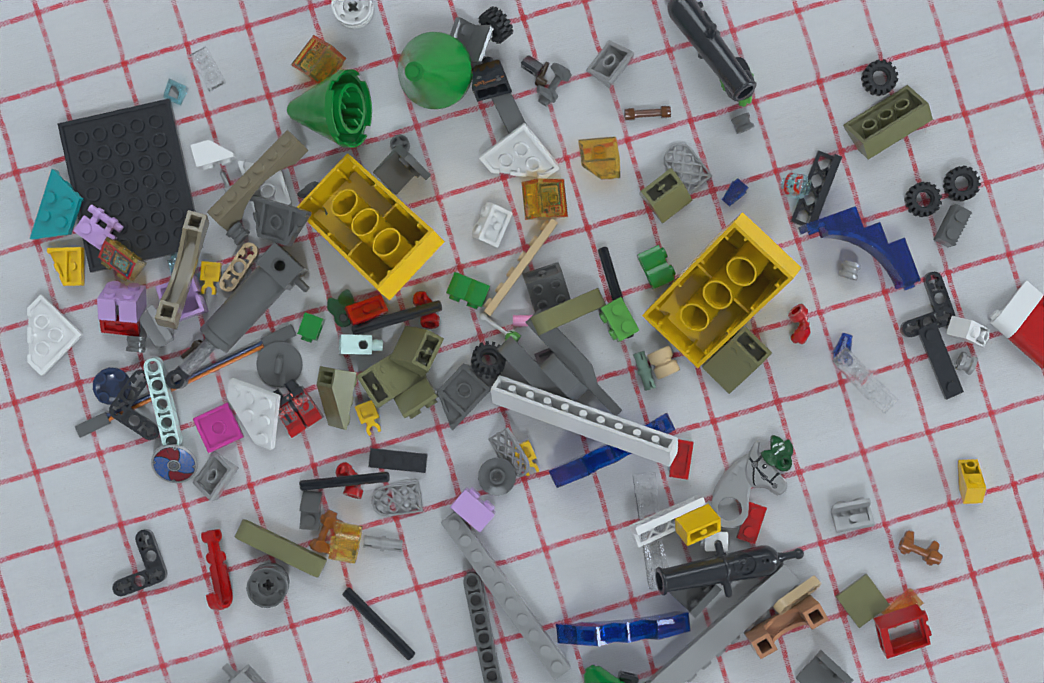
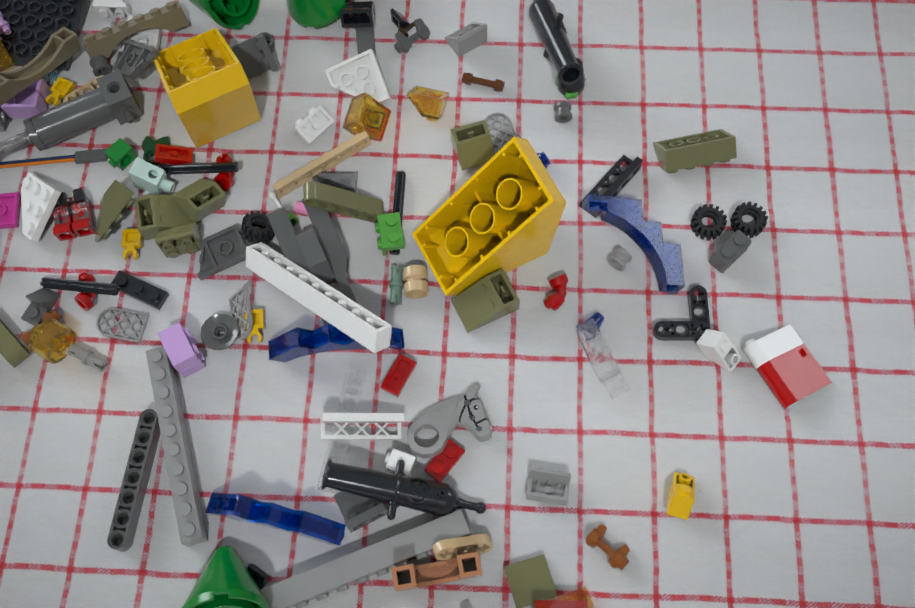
camera: 15 degrees right, 20 degrees down
(279, 364) = (79, 173): dark grey shield -> none
(378, 623) = (46, 432): black axle -> none
(468, 290) = (267, 167): green brick -> none
(656, 266) = (440, 193): green brick -> none
(697, 524) = (387, 437): yellow brick -> none
(779, 451) = (494, 400): dark green plate -> none
(796, 185) = (593, 173): clear light blue head -> none
(885, 67) = (699, 105): black tyre -> none
(940, 360) = (683, 368): black plate -> none
(966, 363) = (708, 378): light grey wheel -> none

